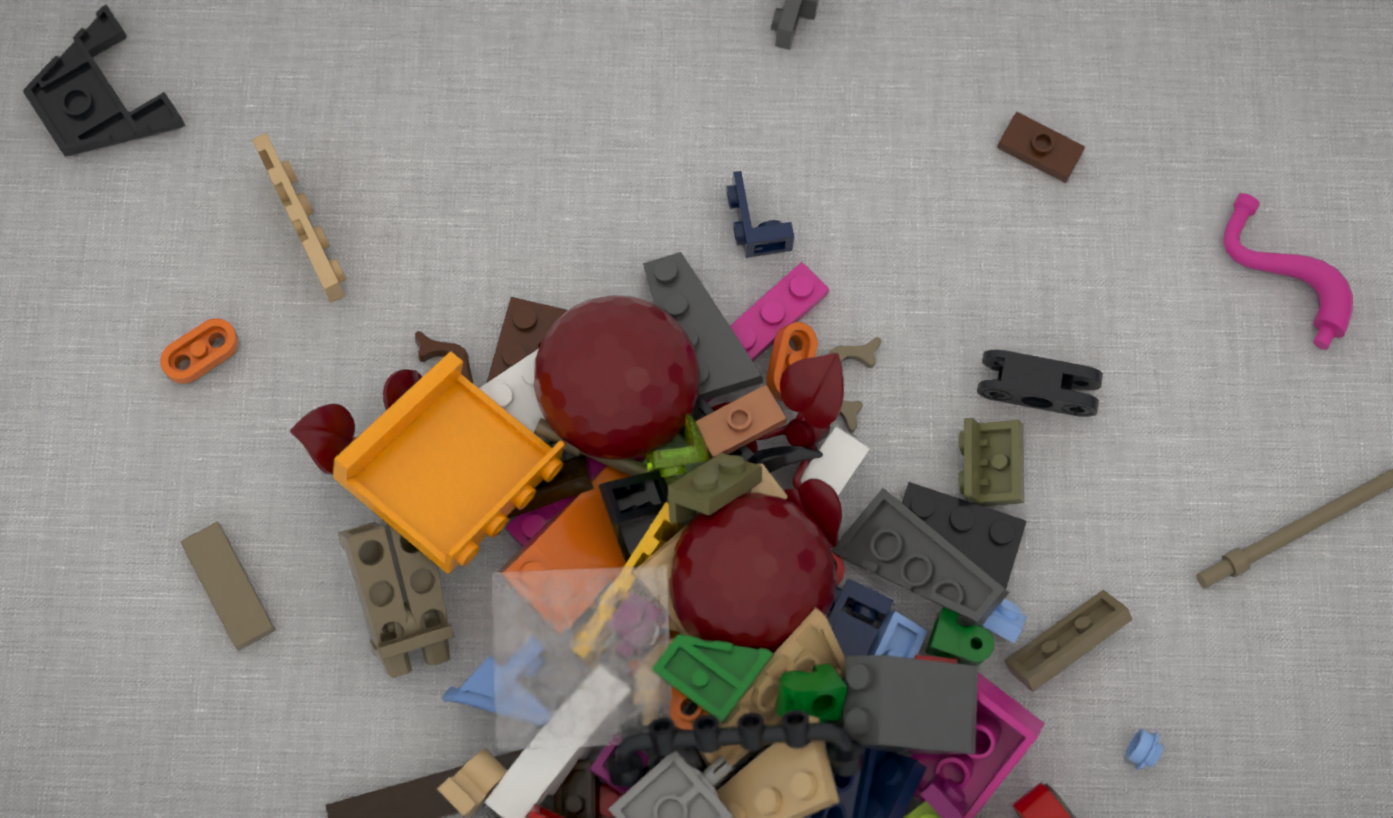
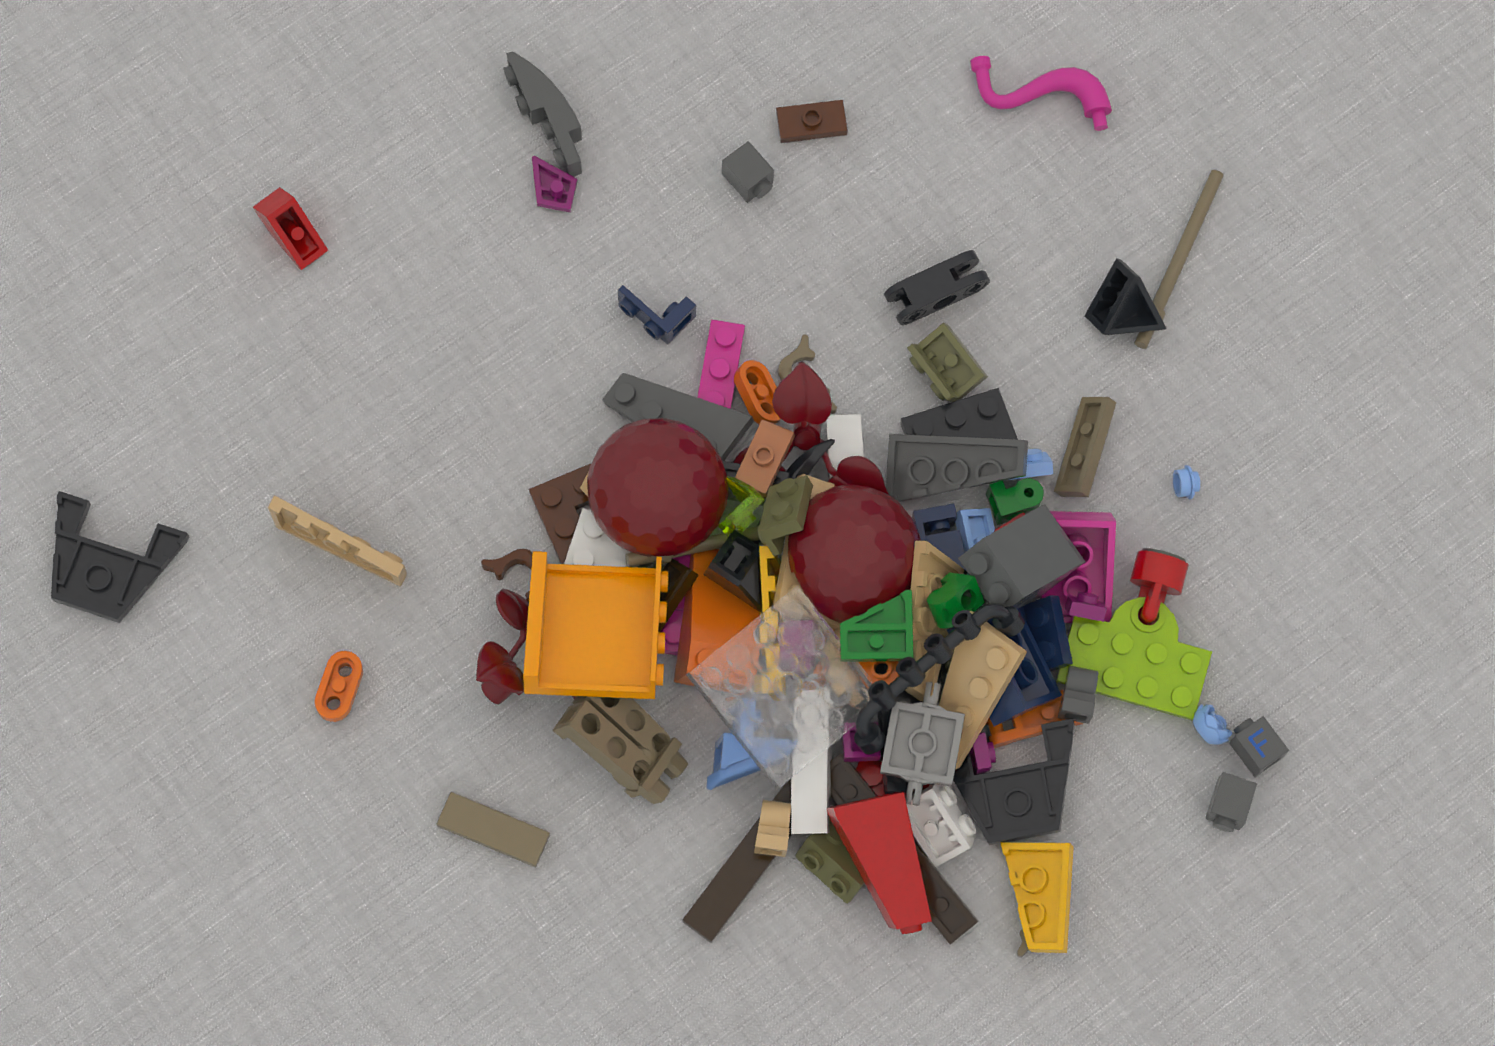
camera: 40 degrees left, 0 degrees up
(753, 41) = (553, 186): none -> magenta piece
(942, 151) = (748, 172): none -> dark grey brick
(1212, 529) = (1123, 304): none -> black slope

